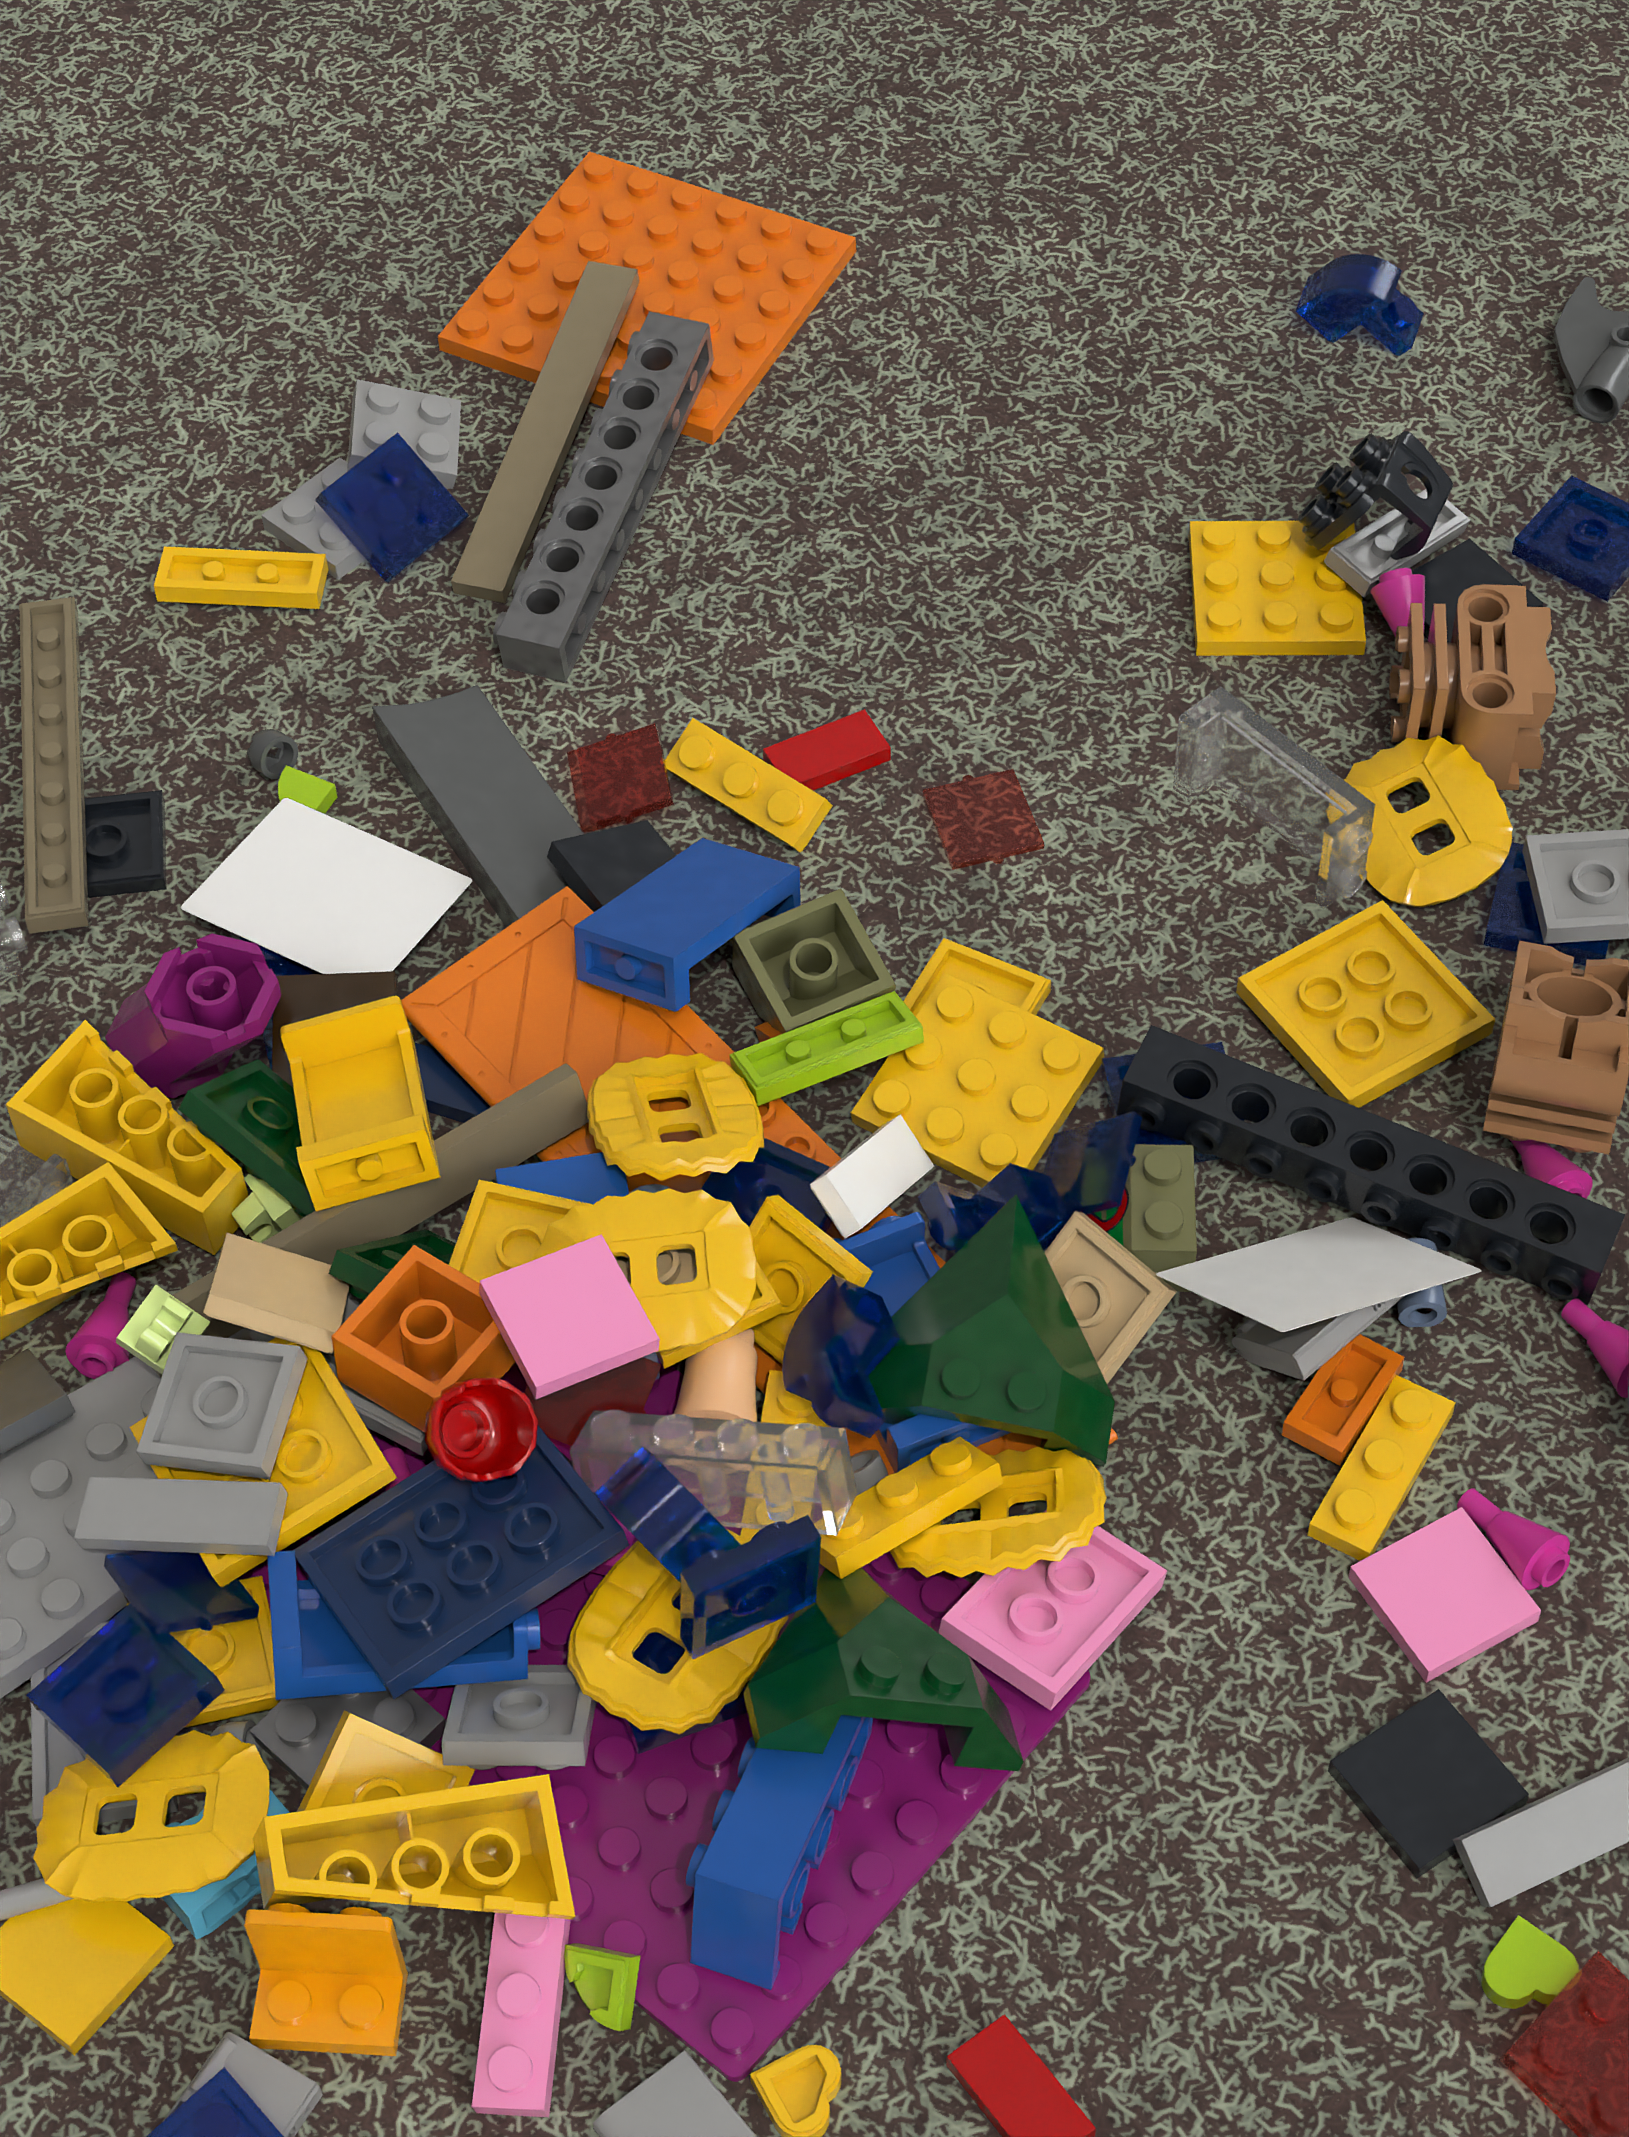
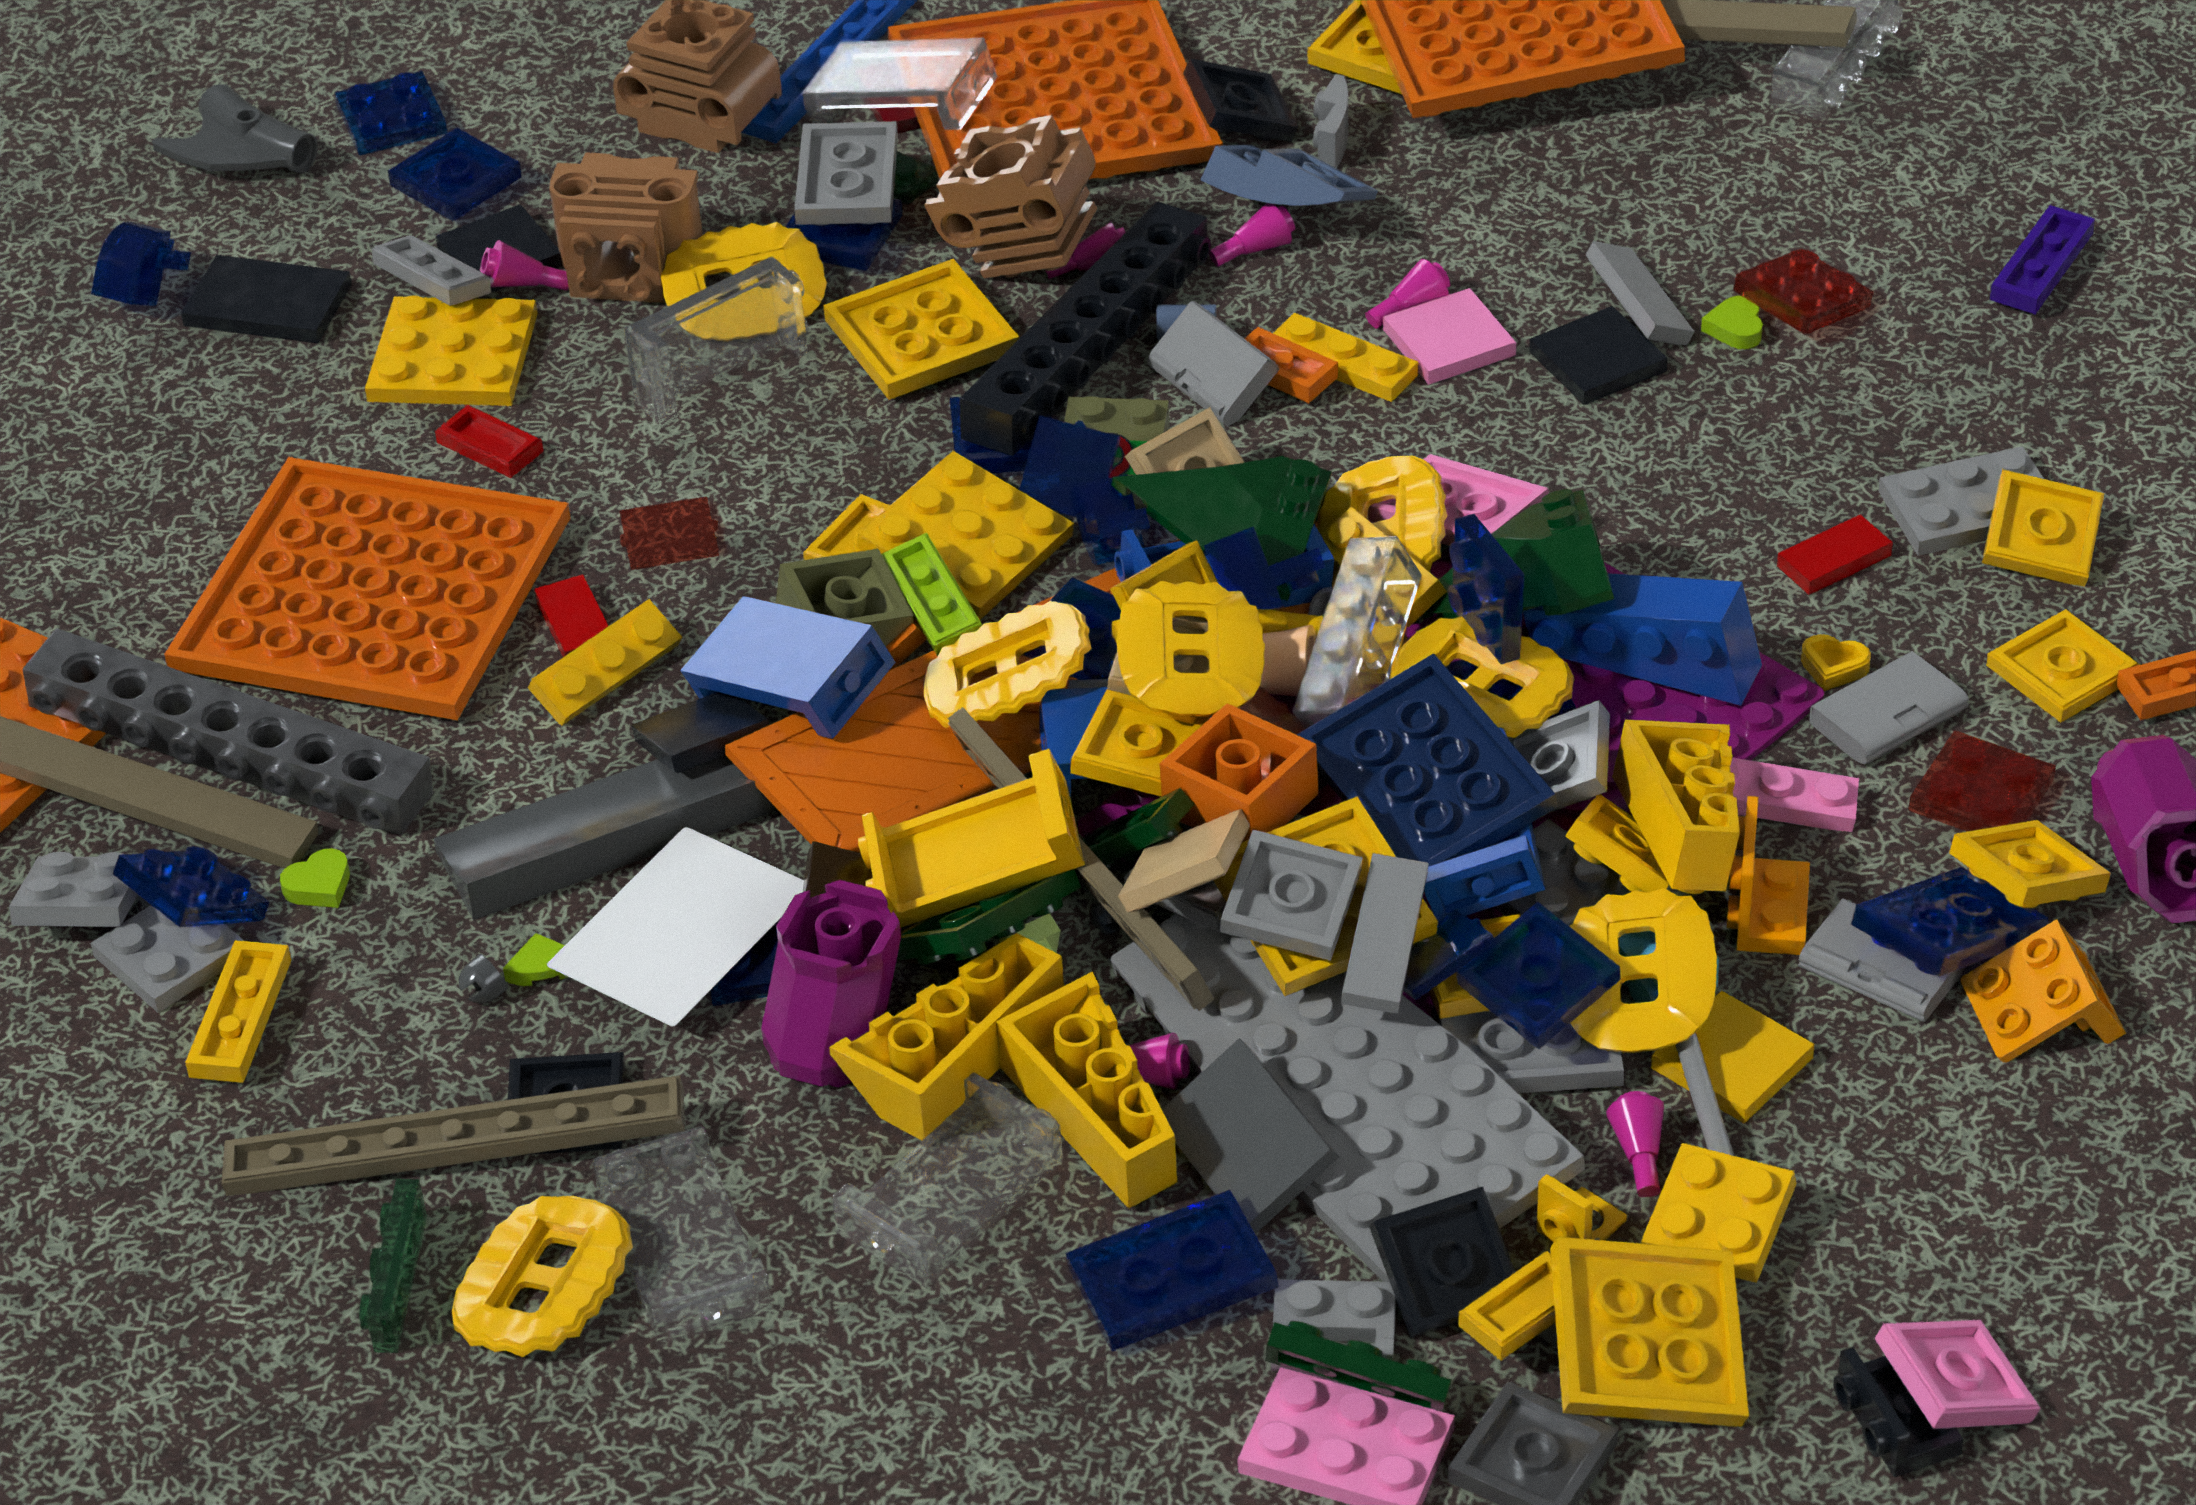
camera: 85 degrees left, 10 degrees down
(155, 1325) = (1204, 947): yellowish green tile -> none
(430, 610) = (318, 880): none -> lime tile
(481, 1429) = (1340, 725): red hair -> none
(569, 1316) = (1243, 669): bright pink tile -> none
(604, 1982) = (1759, 744): lime tile -> none
(620, 778) = (572, 745): clear red piece -> none
(663, 1513) = (1413, 632): clear blue brick -> none
(863, 580) = (369, 588): none -> orange plate
(871, 1176) = (1080, 565): white tile -> none
(1122, 642) = (489, 441): none -> red tile
(1317, 1274) = (1206, 332): white sticker -> none
(1336, 409) = (266, 298): none -> black tile
(1377, 471) = (406, 254): black piece -> none

